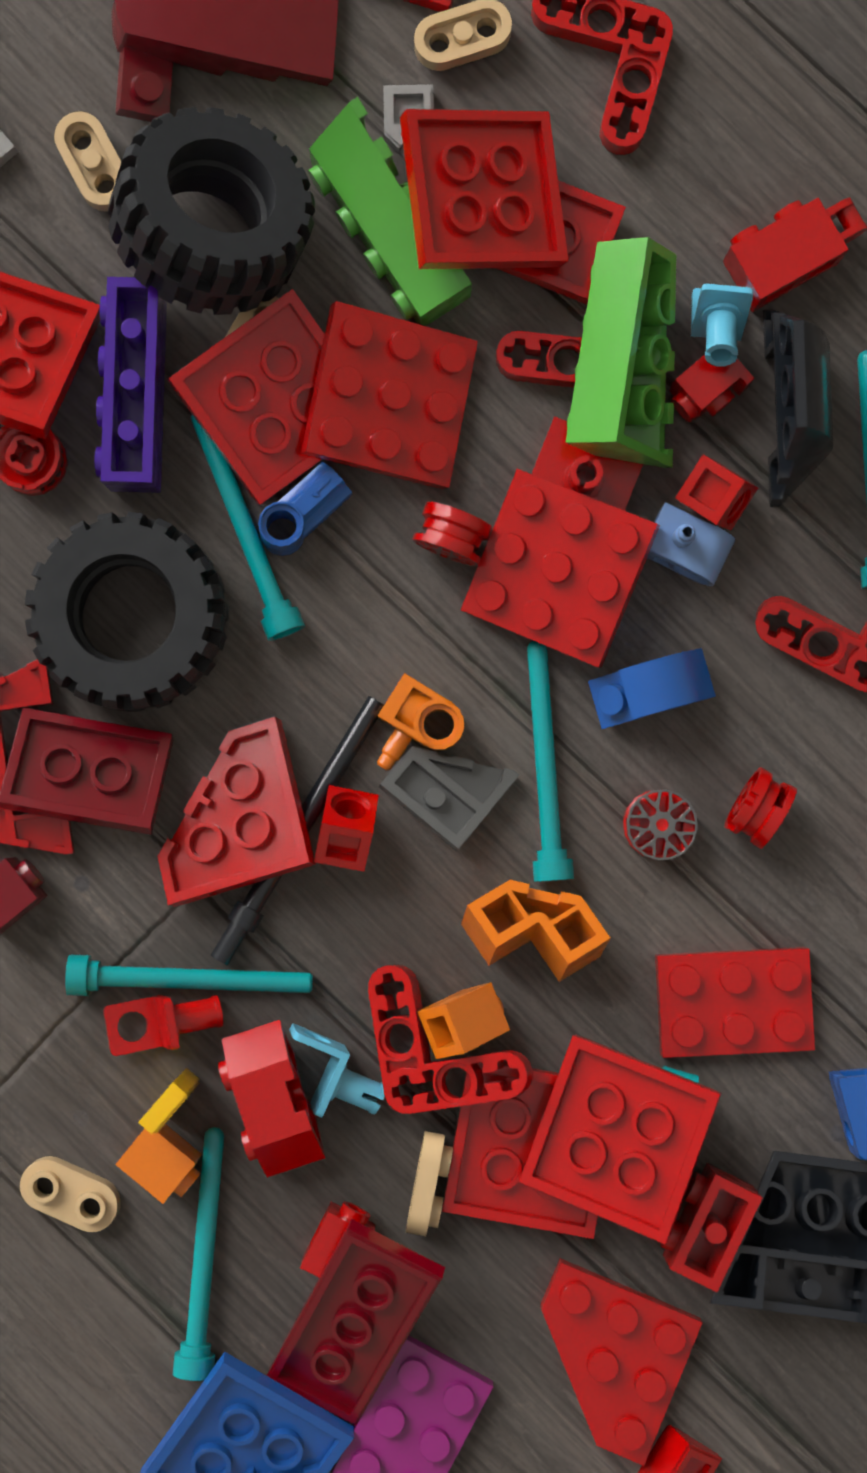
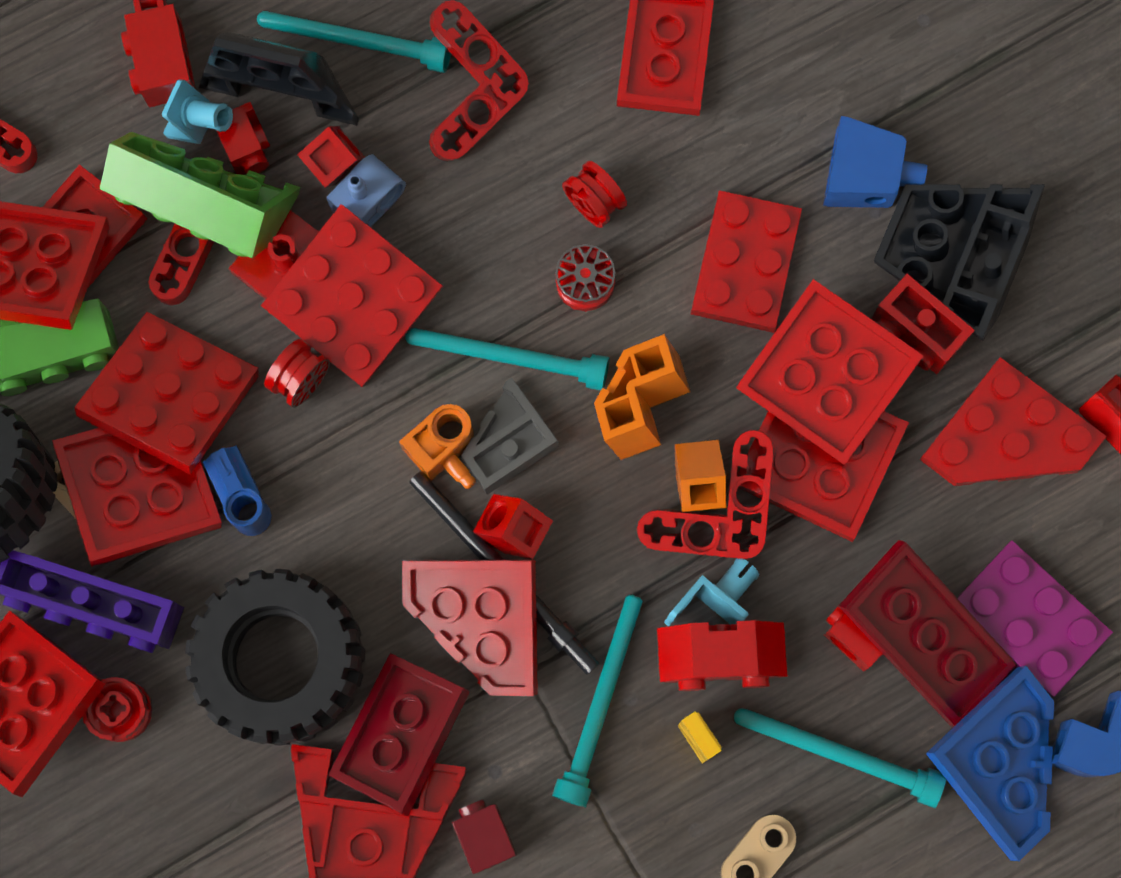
camera: 70 degrees left, 10 degrees down
(161, 1163) = (750, 765): orange brick -> none
(163, 1021) = (631, 729): red bracket -> none
(279, 615) = (318, 535): teal piece -> none
(433, 1162) = (845, 553): tan plate -> none
(651, 688) = (472, 253): blue brick -> none

